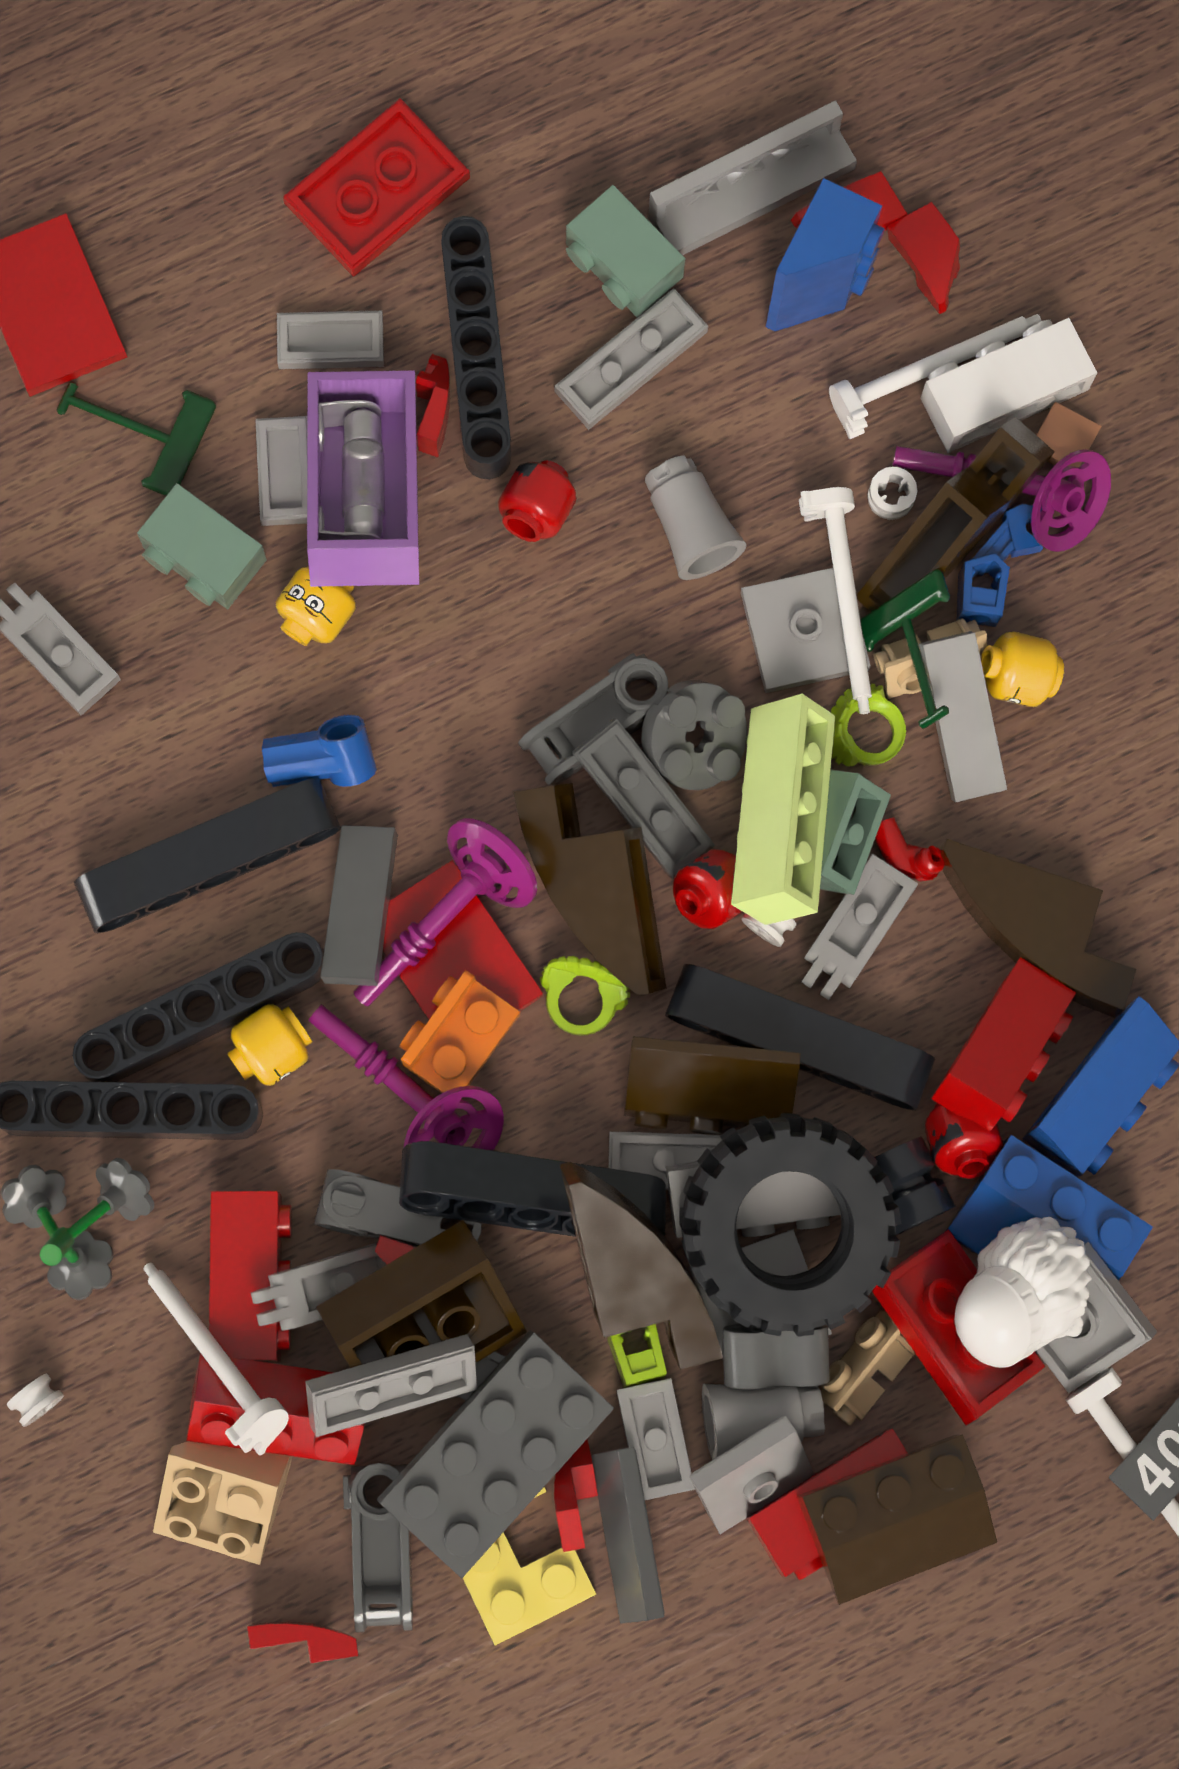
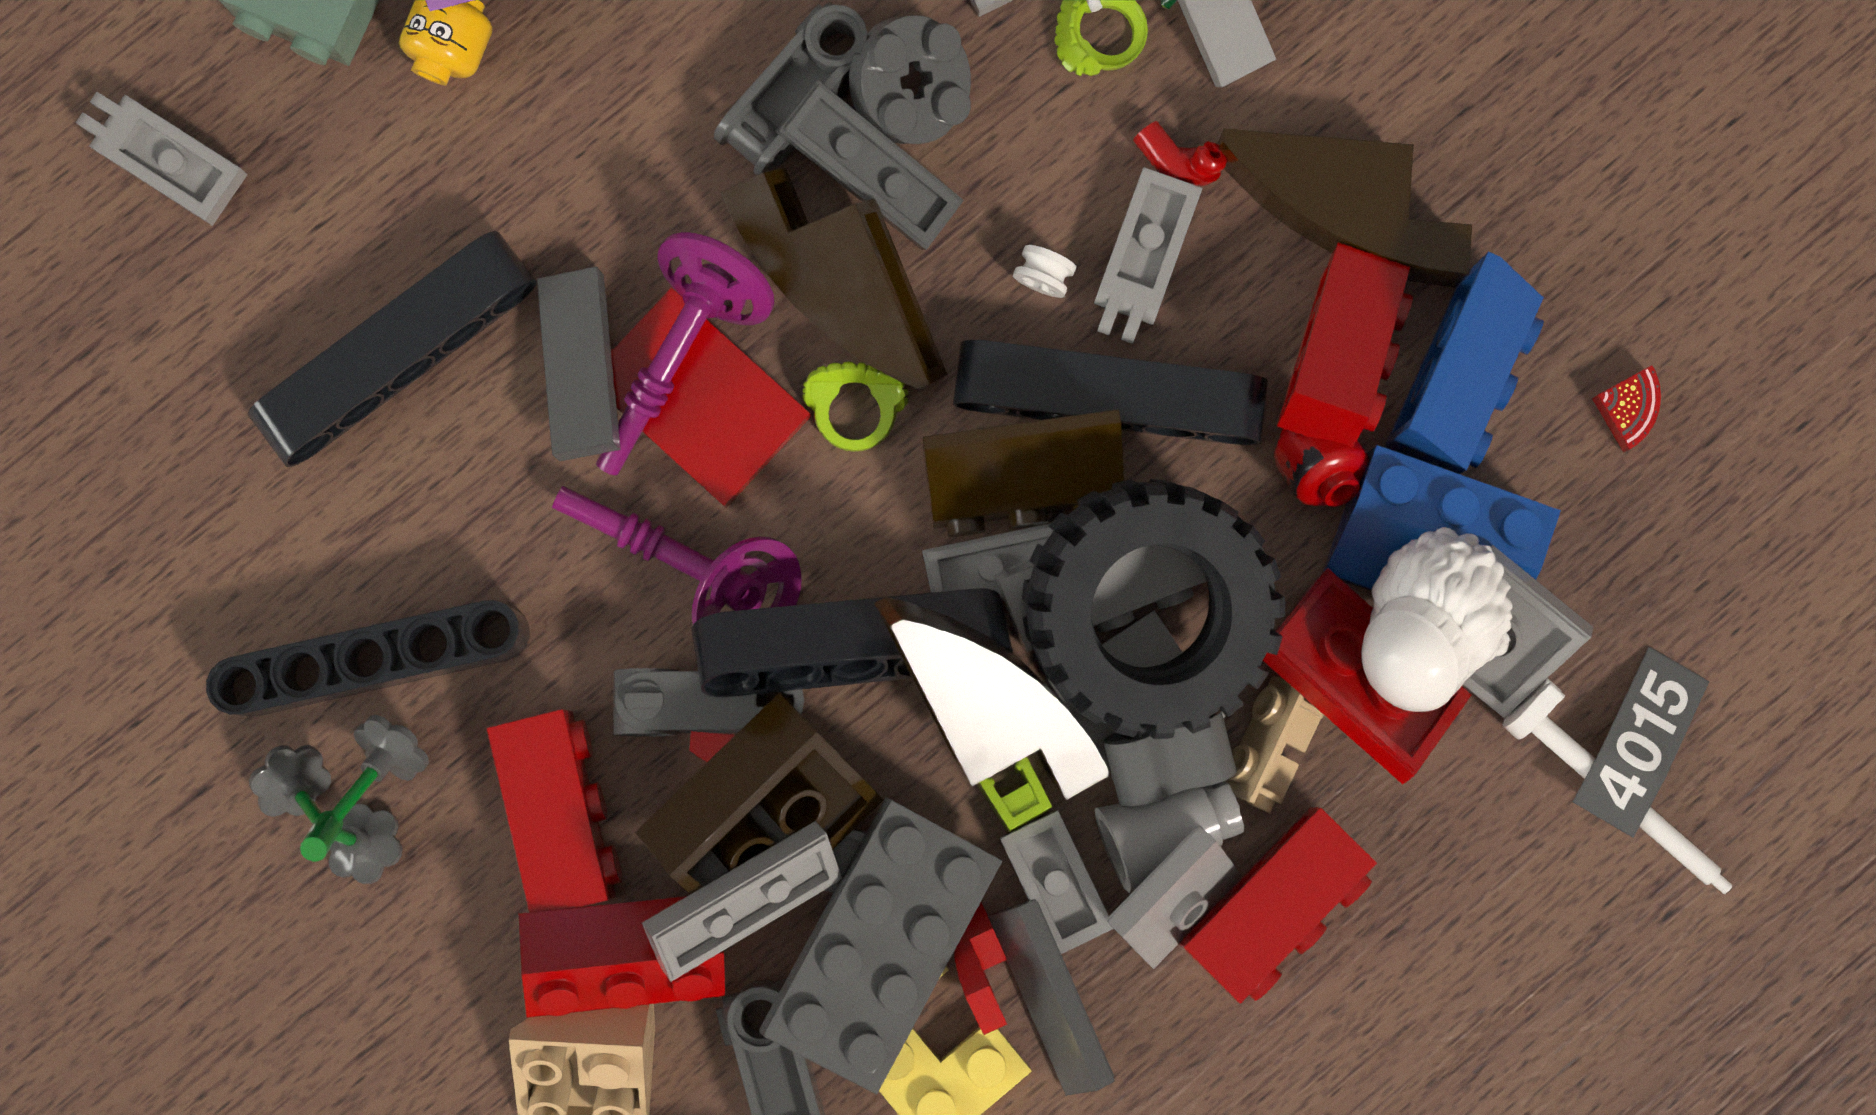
camera: 10 degrees left, 5 degrees up
(35, 1400) = (348, 1008): white bush -> none
(172, 1009) = (395, 527): black beam -> none
(262, 1418) = (603, 975): white piece -> none
(269, 1044) = (514, 545): yellow head -> none
(308, 1285) = (625, 806): light grey hinge -> none
(334, 751) = (505, 197): blue piece -> none
(458, 1035) = (725, 481): orange bracket -> none
(705, 889) = (973, 249): red head -> none
(783, 810) = (1032, 139): yellowish green brick -> none
(851, 826) = (1092, 150): sand green brick -> none
(899, 1518) = (1353, 906): dark brown slope -> none
(915, 1190) = (1287, 536): black wheel -> none

